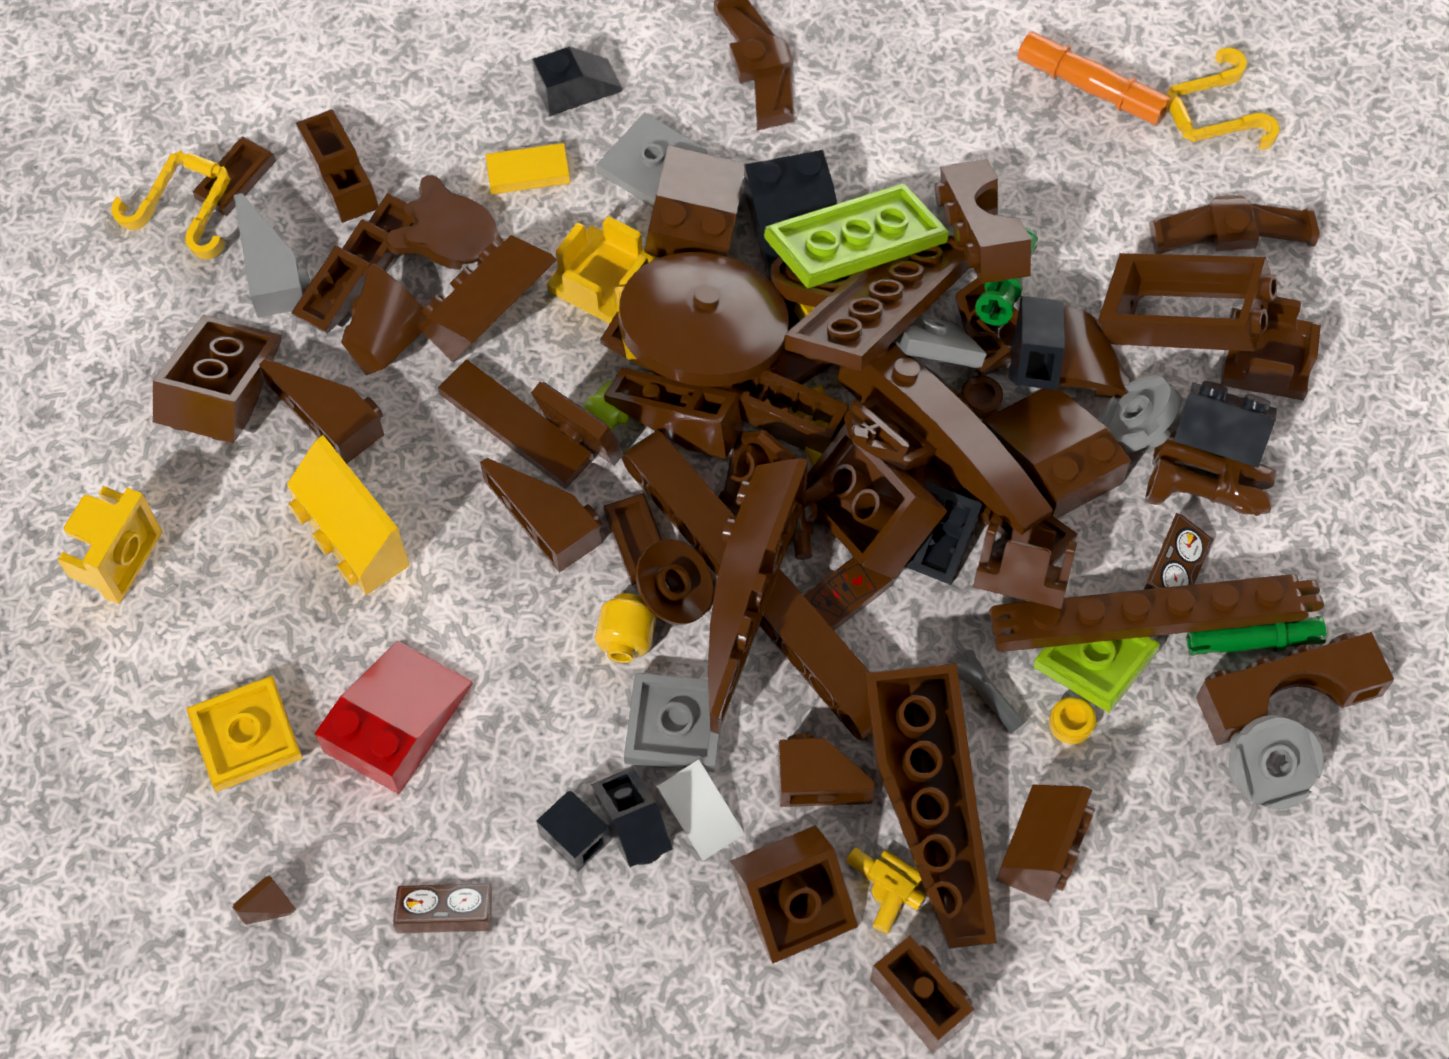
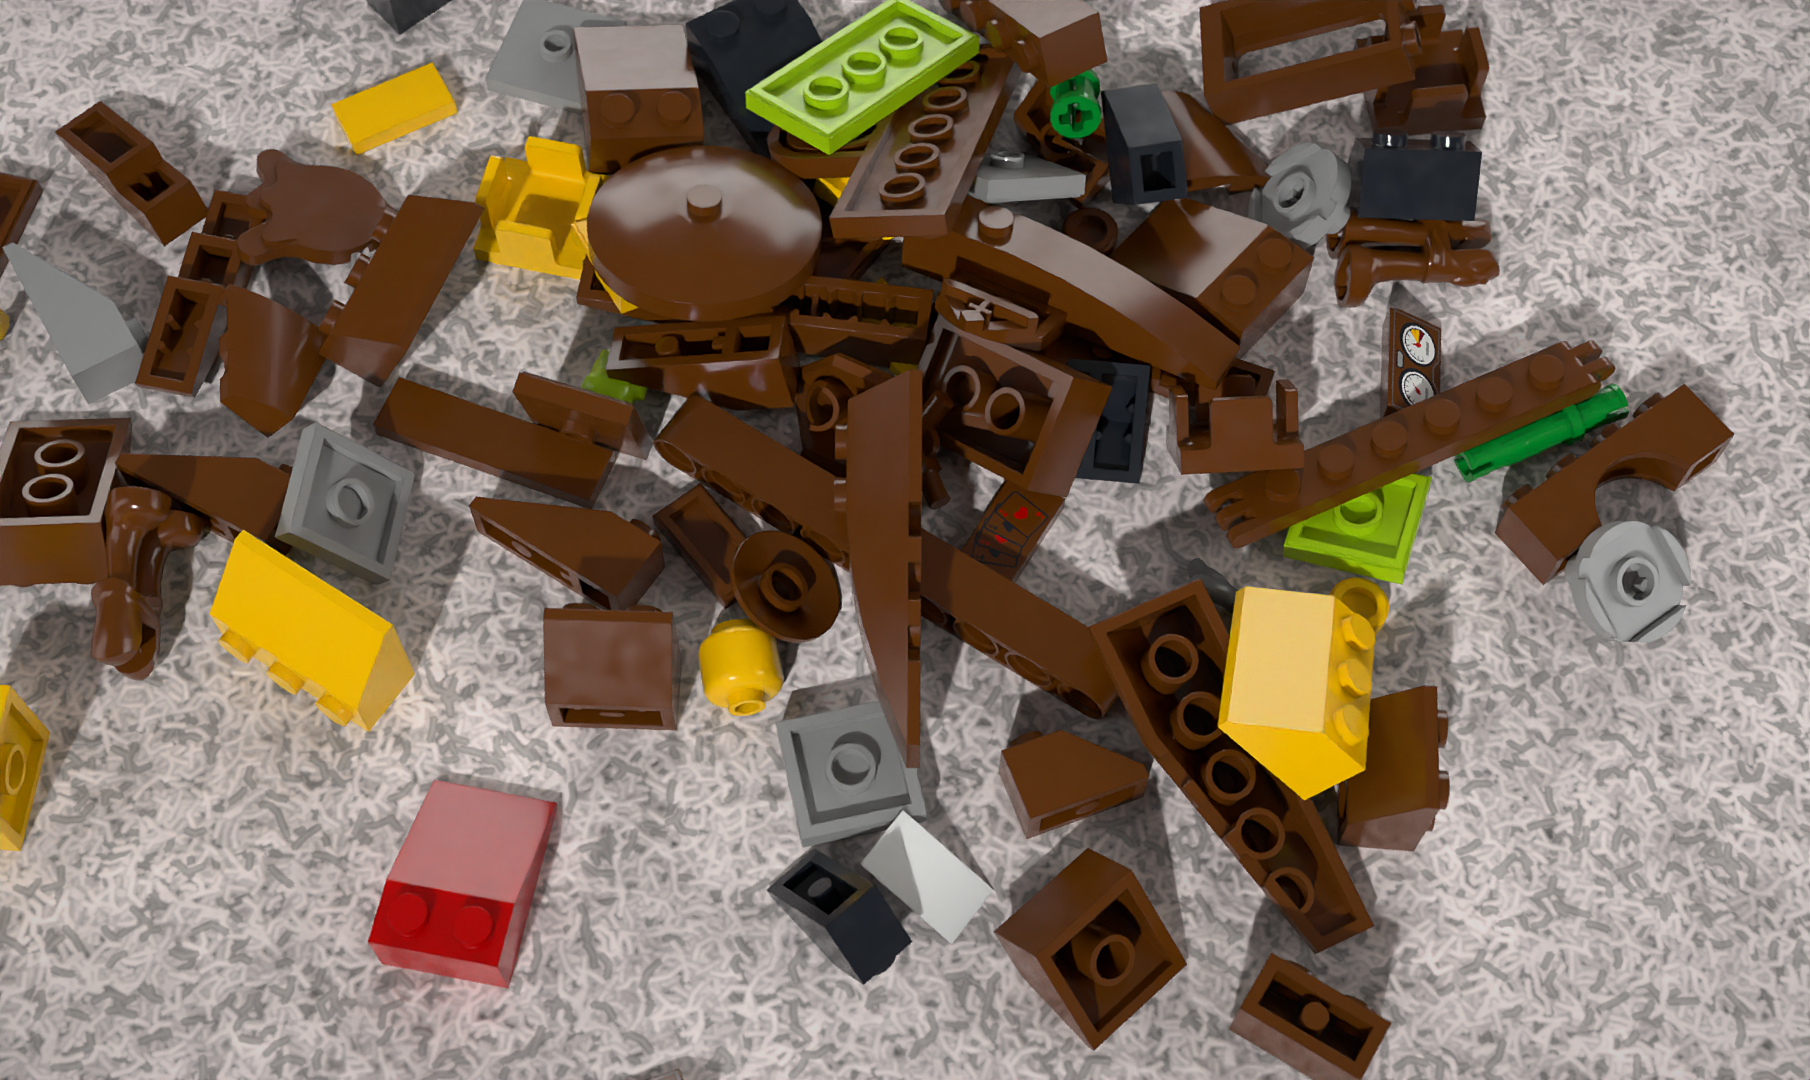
camera: 20 degrees left, 0 degrees up
(239, 460) = (129, 601): none -> reddish brown piece
(244, 733) = (262, 974): yellow plate -> none
(399, 437) = (345, 504): none -> light grey plate
(536, 601) = (611, 667): none -> reddish brown slope
(573, 830) = (768, 959): black panel -> none
(892, 885) = (1211, 895): yellow piece -> none
(998, 759) = (1299, 686): none -> yellow slope

